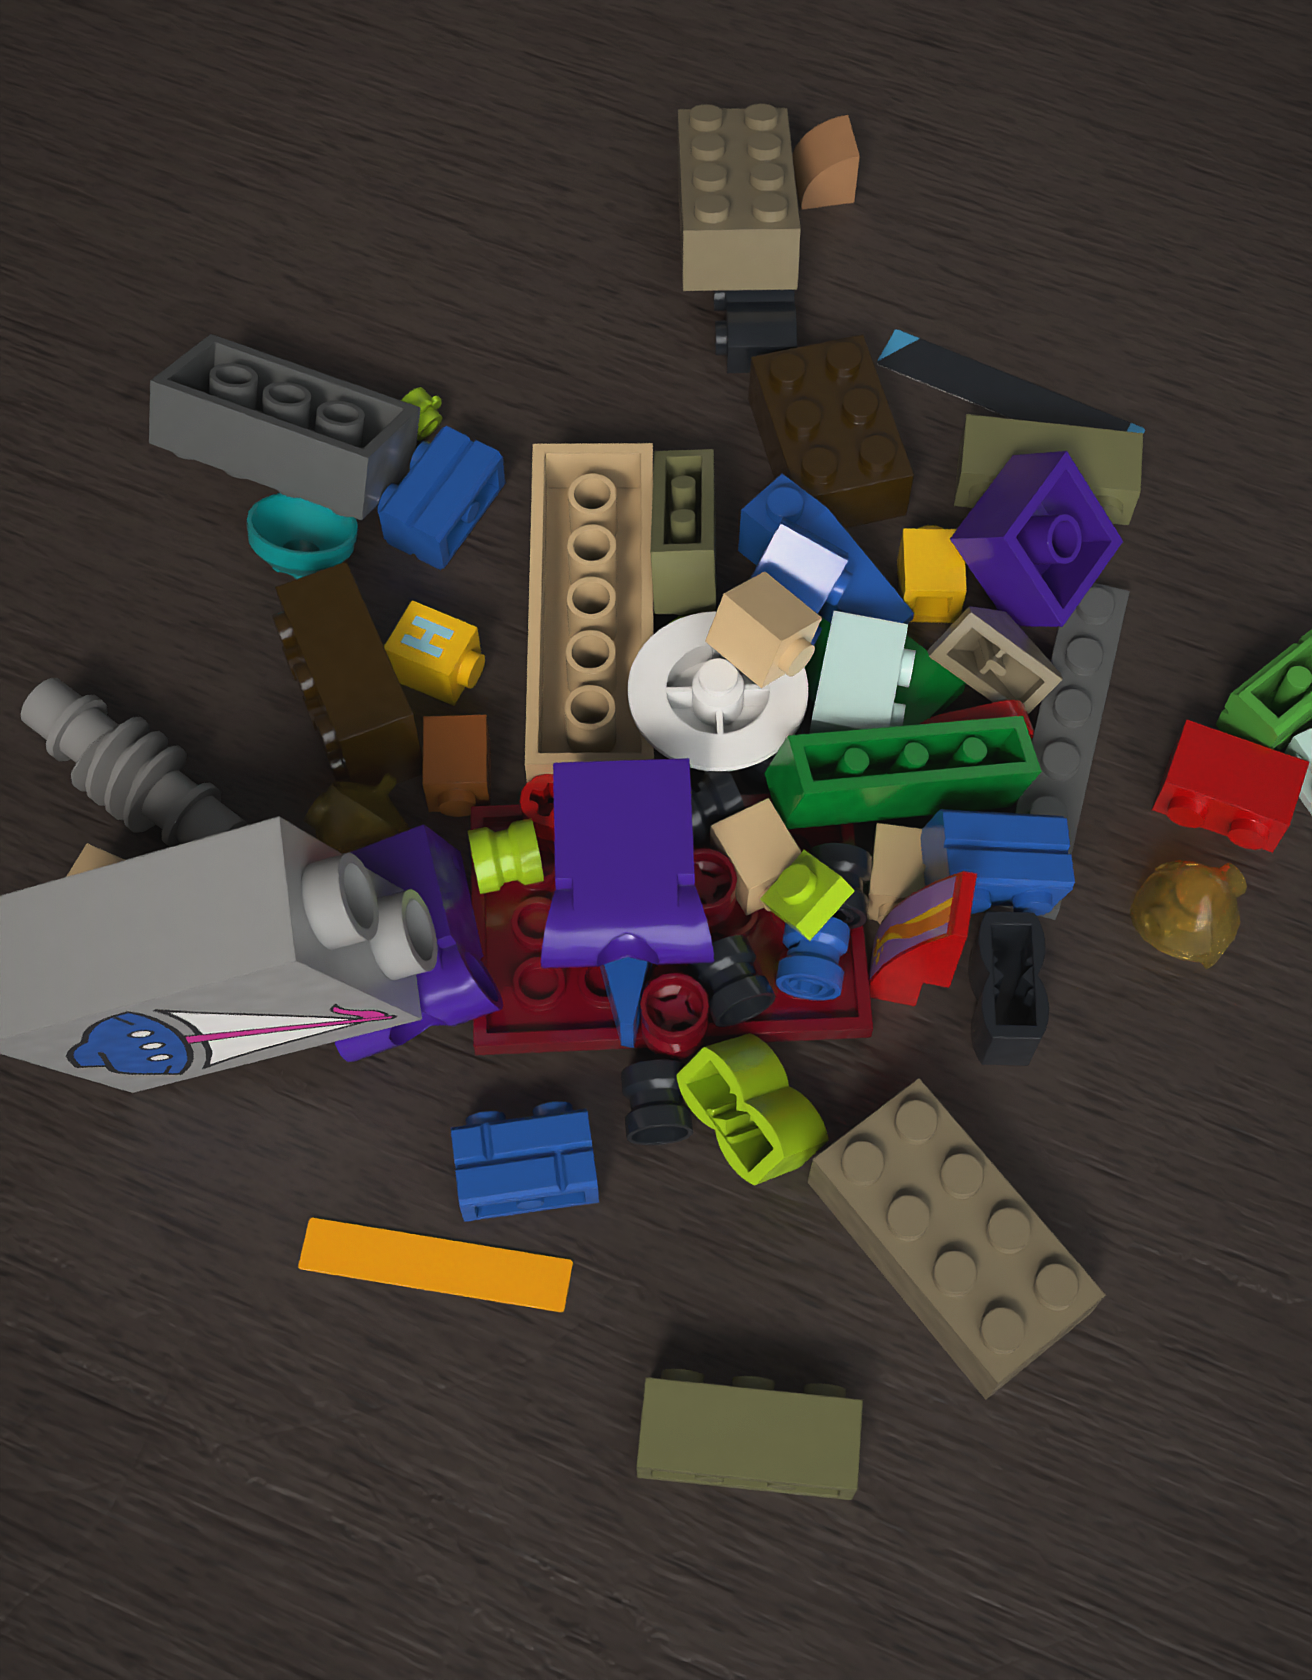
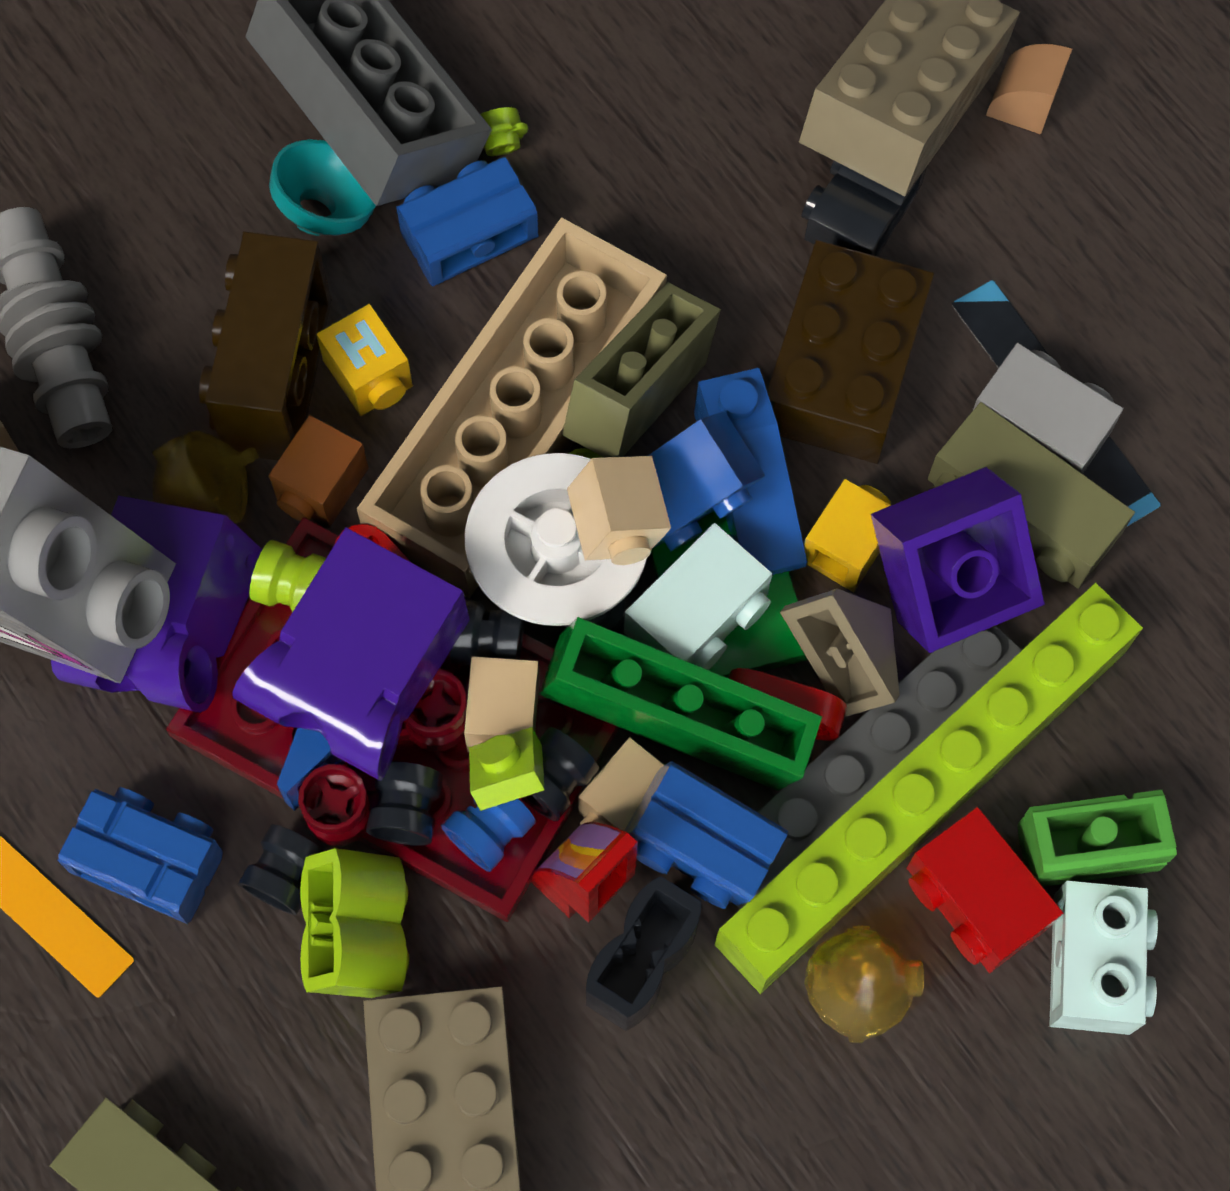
camera: 30 degrees right, 5 degrees up
(1017, 389) = (1052, 406): none -> light grey brick
(1132, 738) = (926, 788): none -> lime brick

